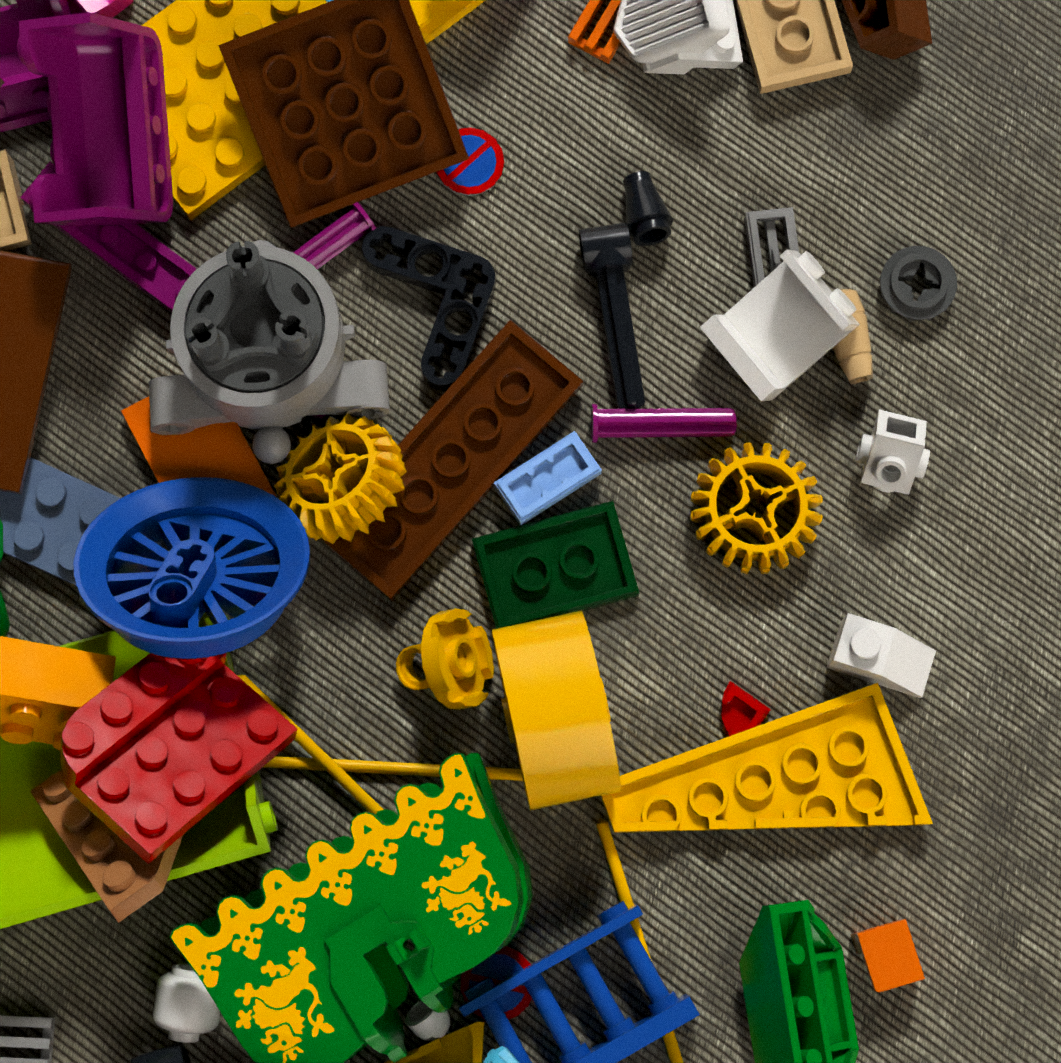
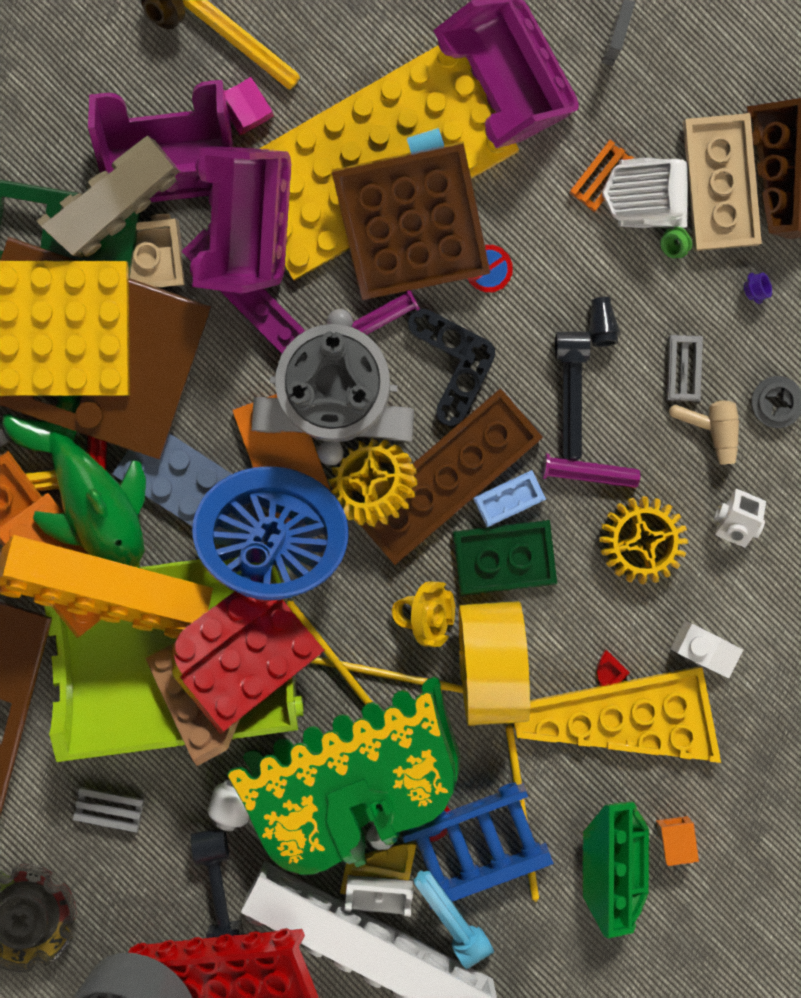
camera: 10 degrees right, 10 degrees up
(722, 88) = (671, 247): none -> bright green plate
(782, 325) = (681, 421): white panel -> none
(859, 128) = (758, 287): none -> dark purple plate

